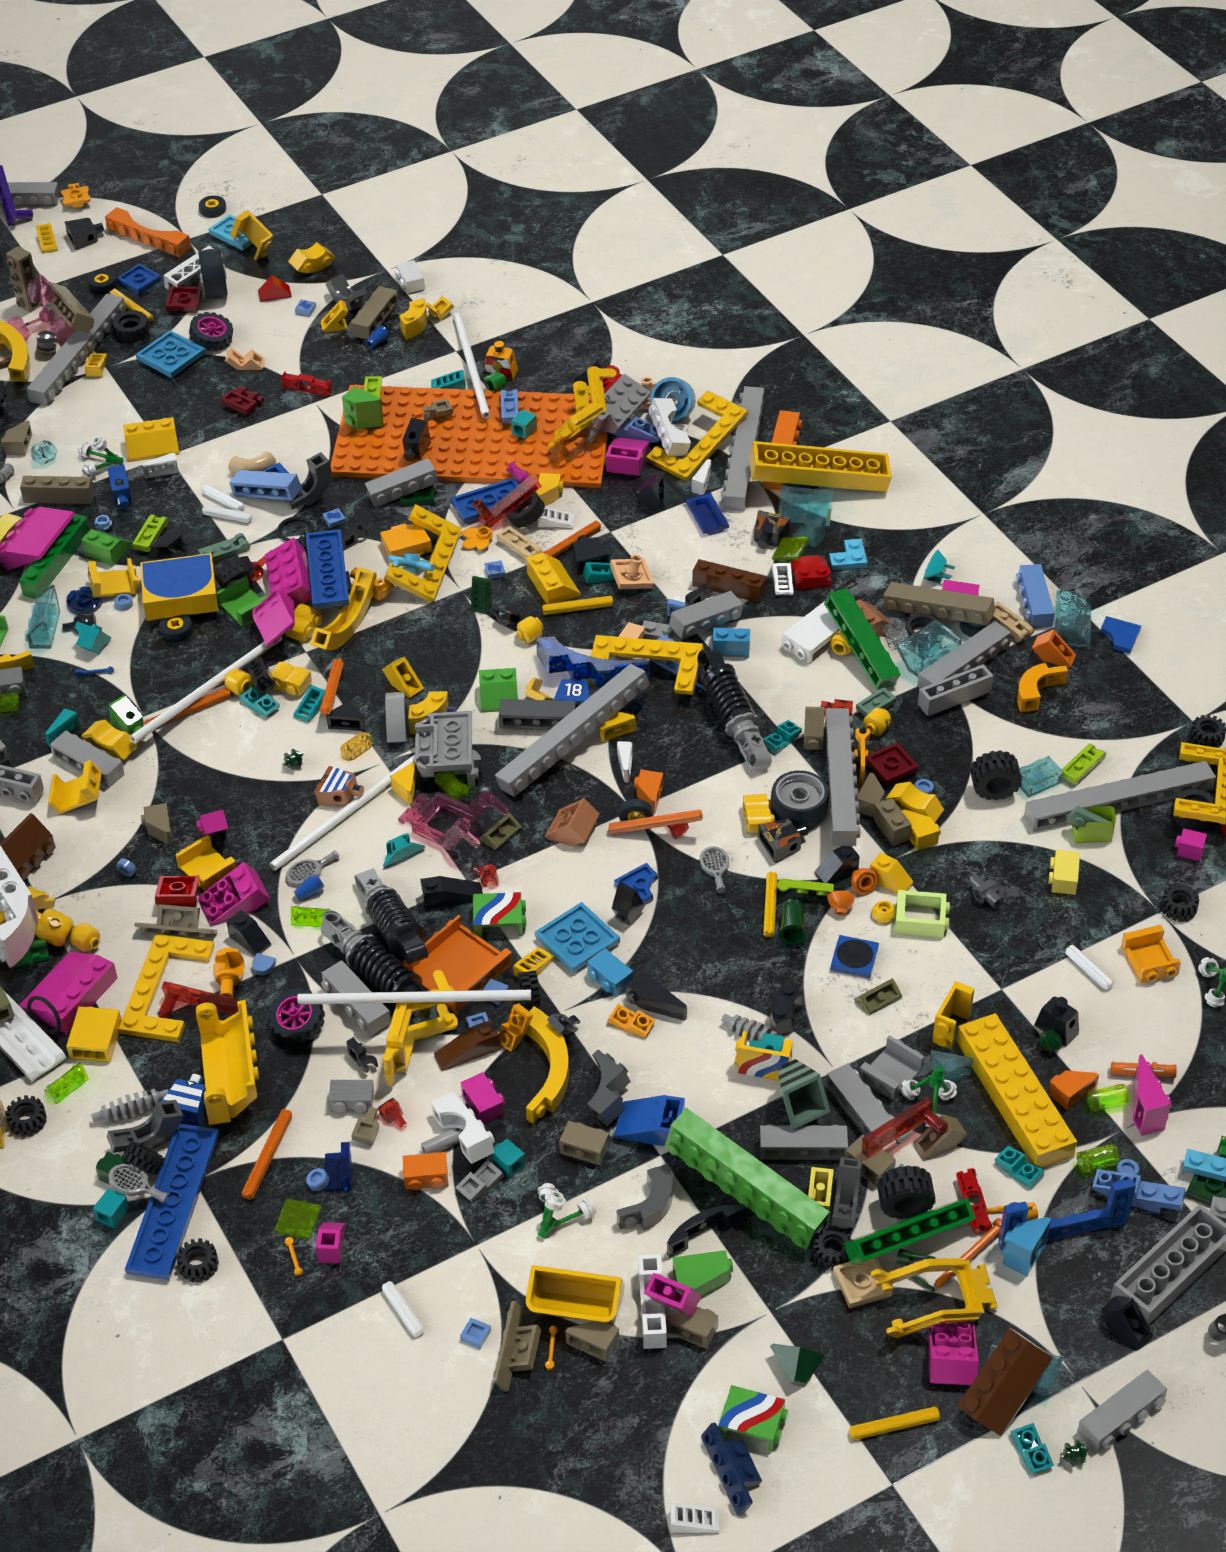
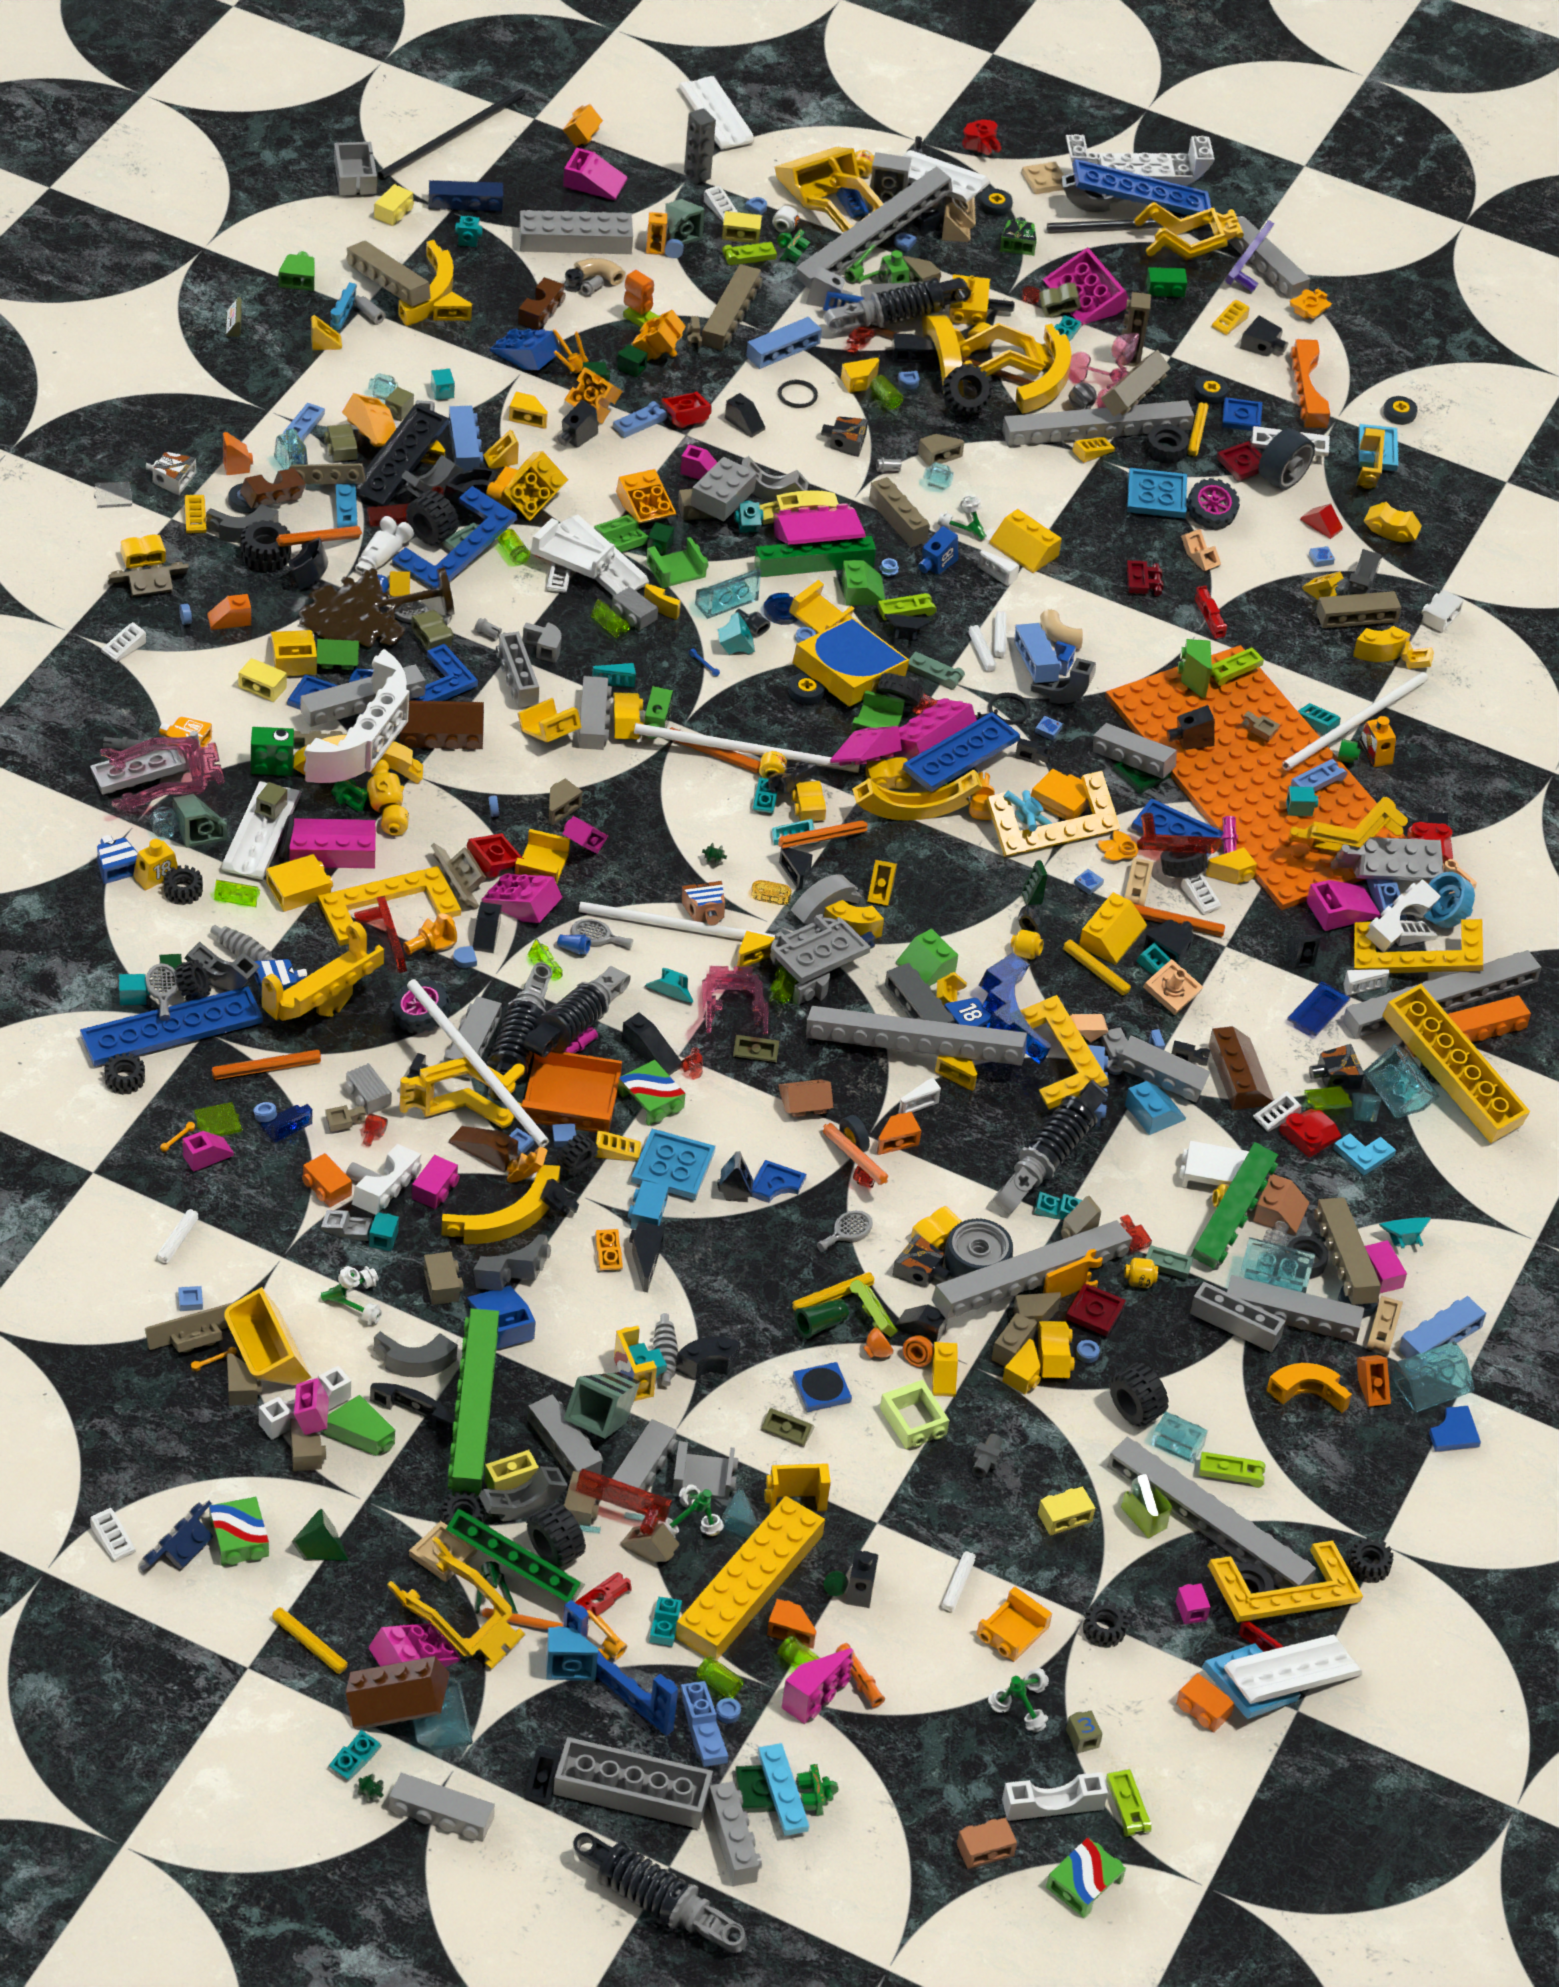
camera: 50 degrees right, 0 degrees up
(378, 336) = (1329, 631): blue cone -> none
(884, 912) = (894, 1382): yellow plate -> none

